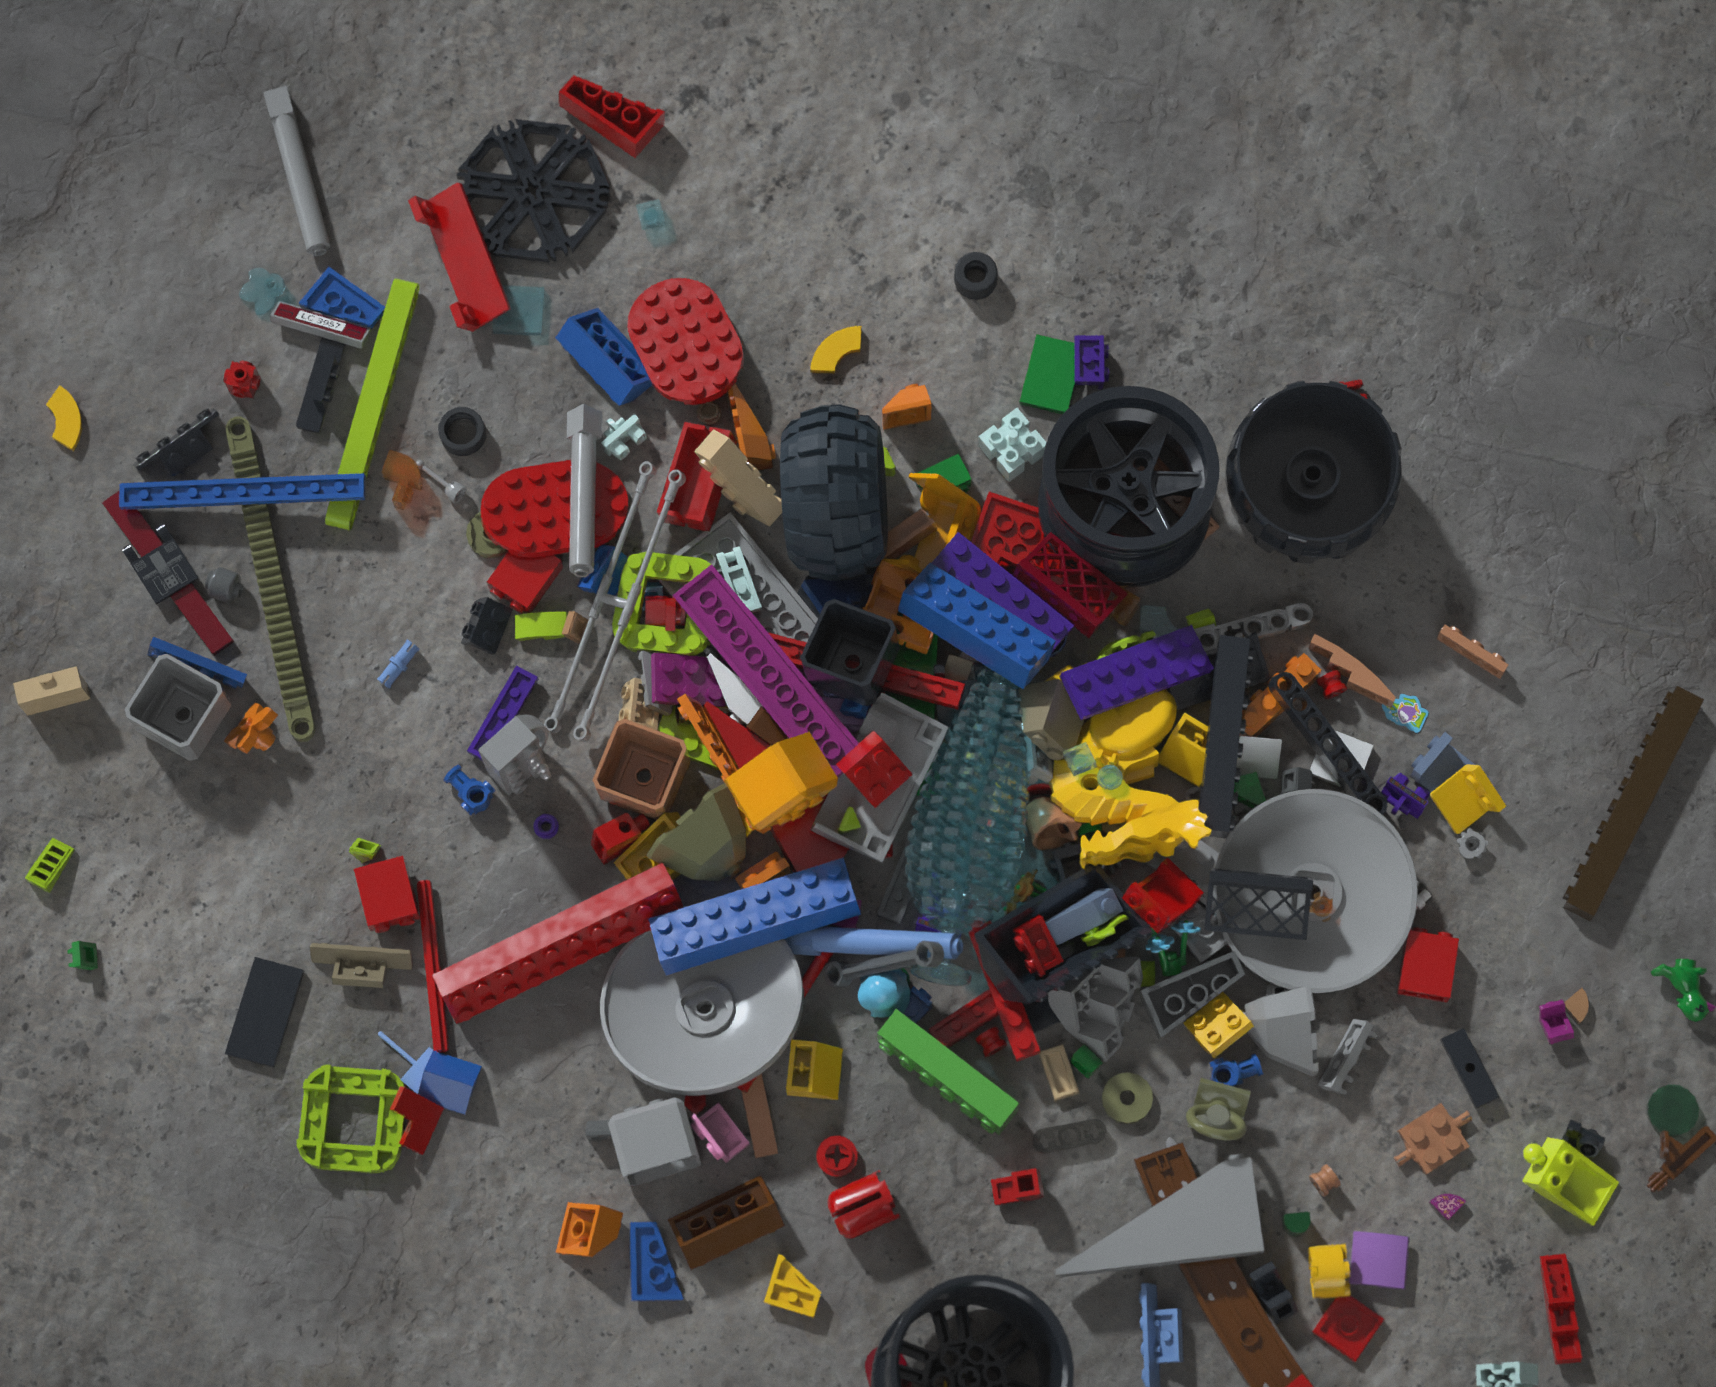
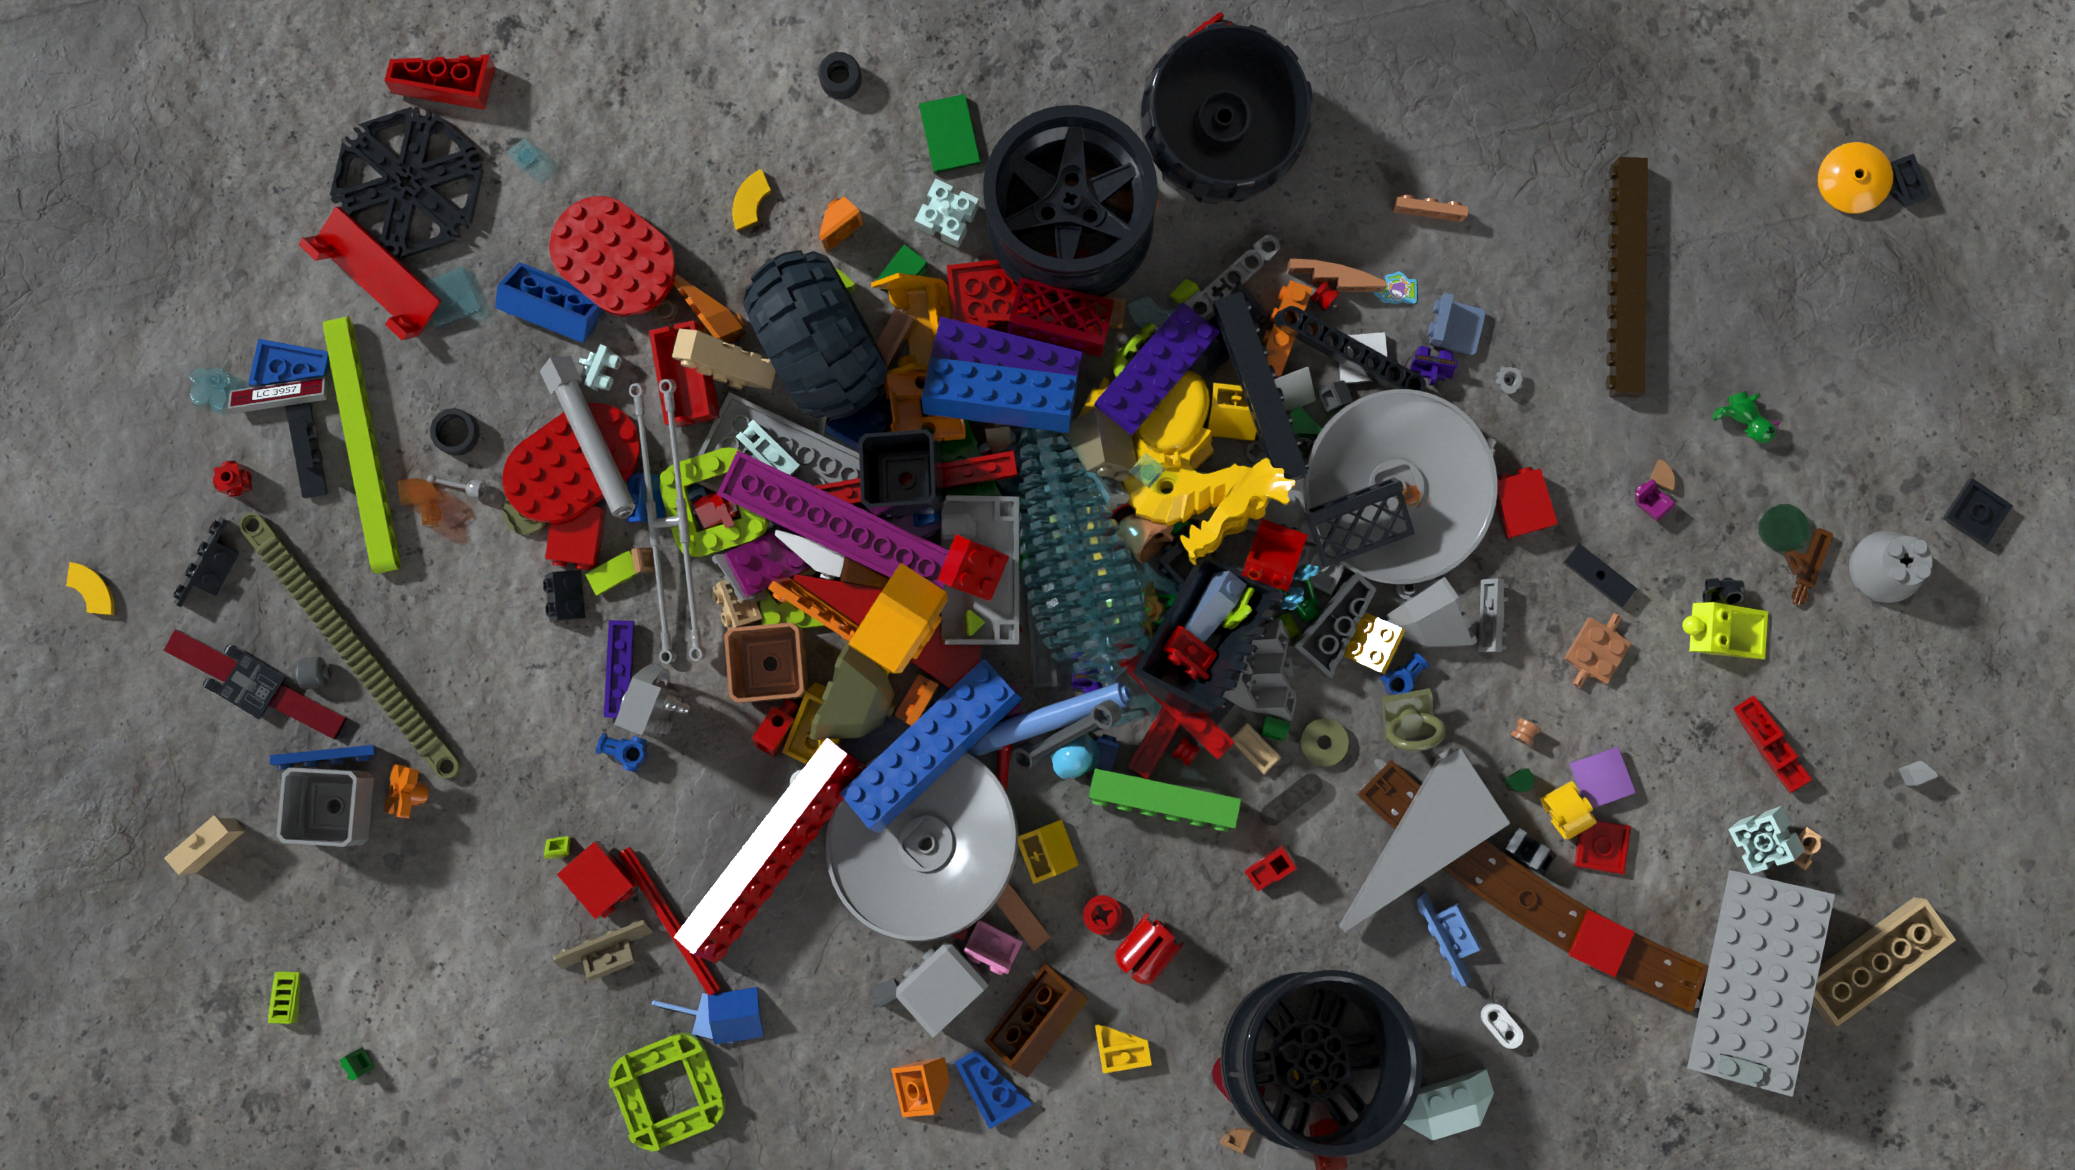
camera: 30 degrees left, 10 degrees up
(242, 491) = (283, 582): blue plate -> none
(264, 1012) = (542, 1034): black tile -> none
(297, 170) = (149, 223): light grey brick -> none
(398, 664) = (503, 668): medium blue pin -> none
(422, 1118) = (728, 1060): red tile -> none
(540, 821) = (700, 746): dark purple plate -> none
(1089, 360) = (977, 105): dark purple bracket -> none
(1109, 777) = (1181, 474): clear light blue plate -> none
(1447, 1204) = (1636, 701): magenta tile -> none
(1466, 797) = (1487, 340): yellow bracket -> none

